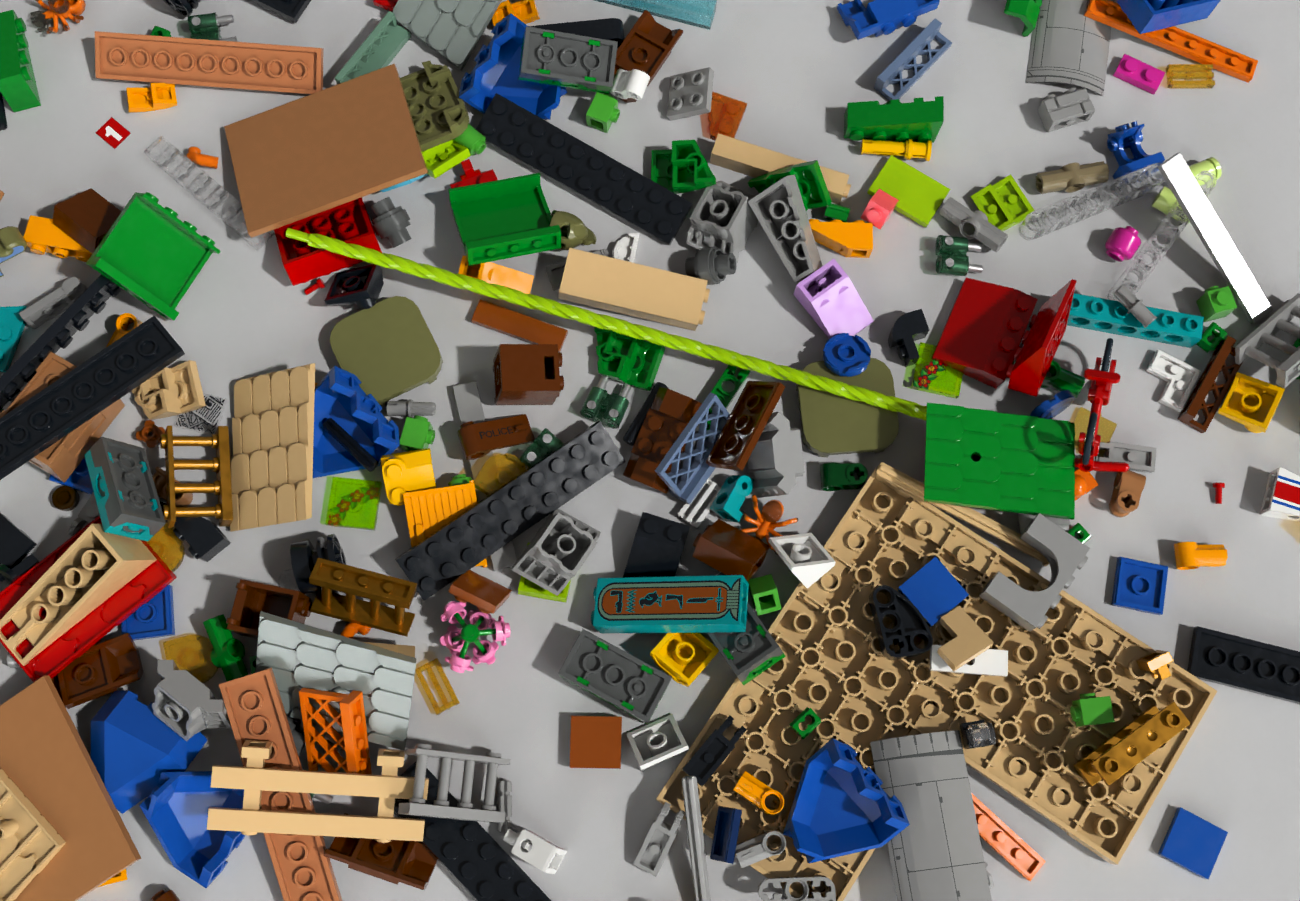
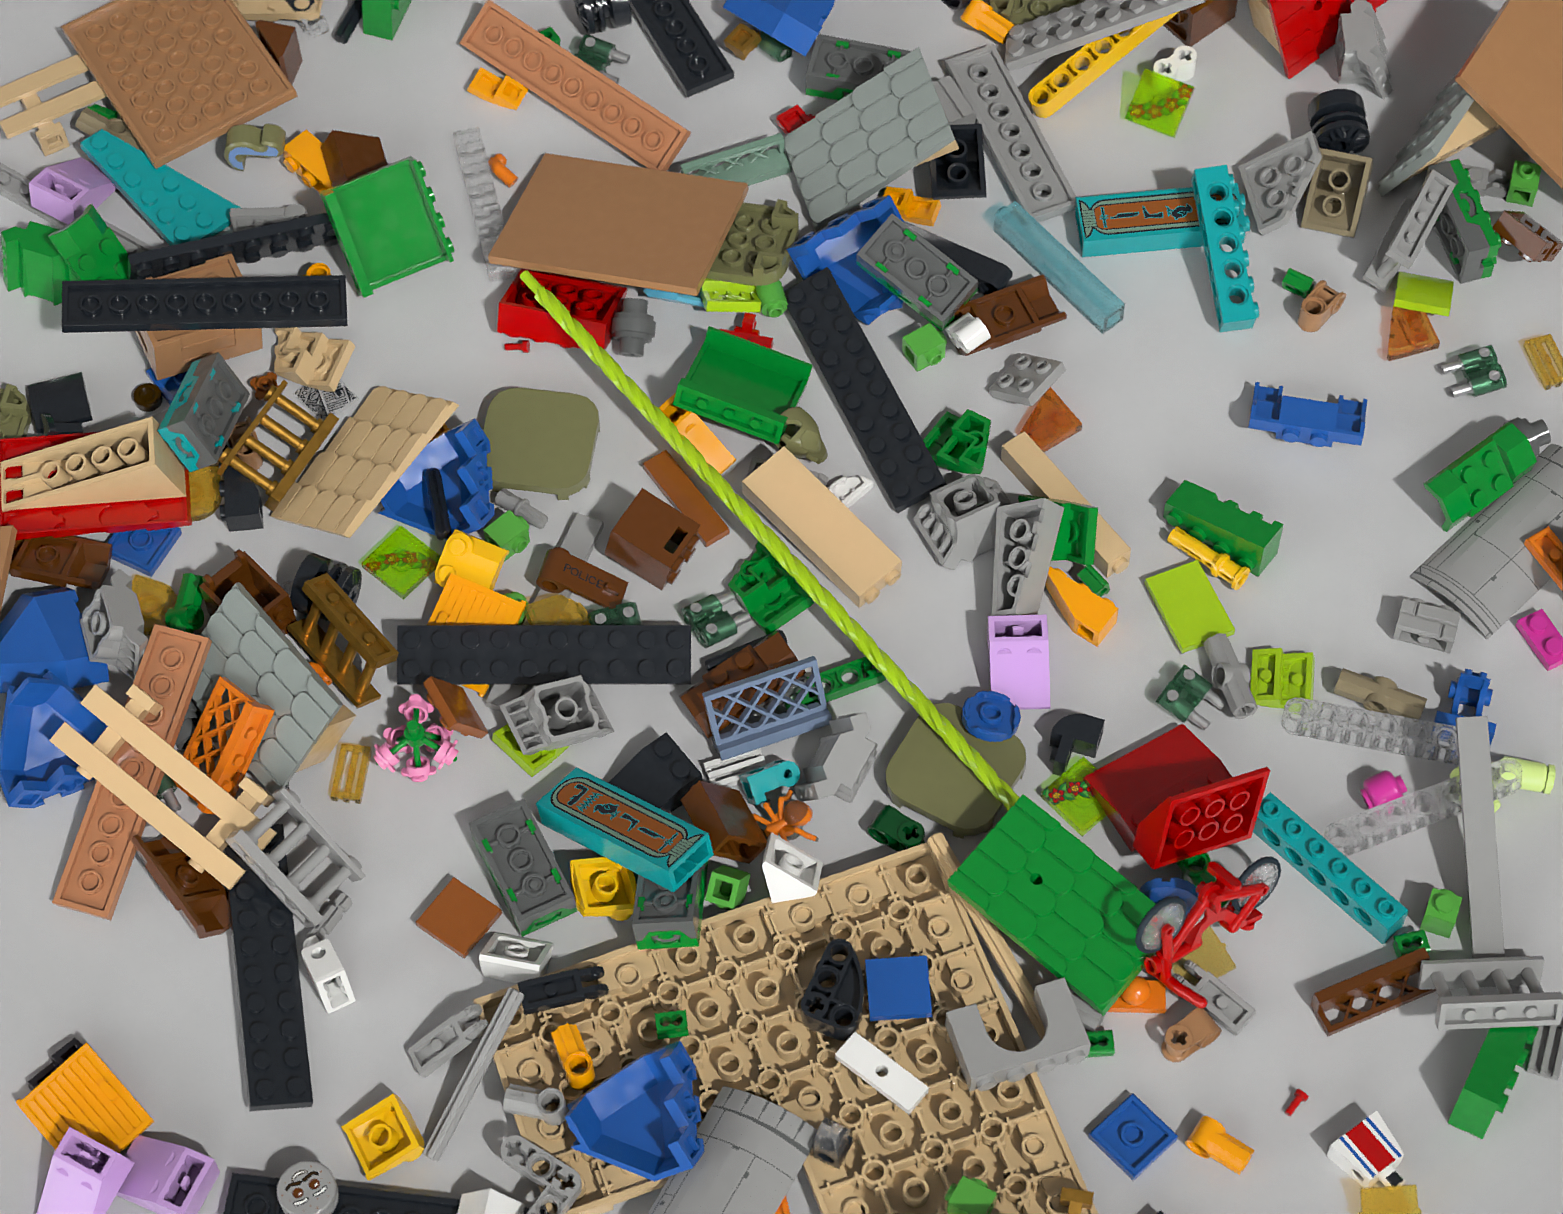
camera: 40 degrees right, 15 degrees down
(113, 132) = (439, 102): red sticker -> none
(357, 287) = (555, 367): black slope -> none
(711, 265) = (918, 550): dark grey piece -> none
(726, 834) = (512, 1069): dark blue tile -> none
(745, 425) = (828, 711): reddish brown tile -> none
(879, 208) = (1139, 601): coral brick -> none
(909, 55) = (1291, 475): sand blue fence -> none
(968, 639) = (893, 1049): tan tile -> none
(1134, 306) = (1332, 848): light grey axle -> none
(1179, 378) = (1342, 956): white tile -> none
(1251, 402) = (1401, 1034): yellow slope -> none

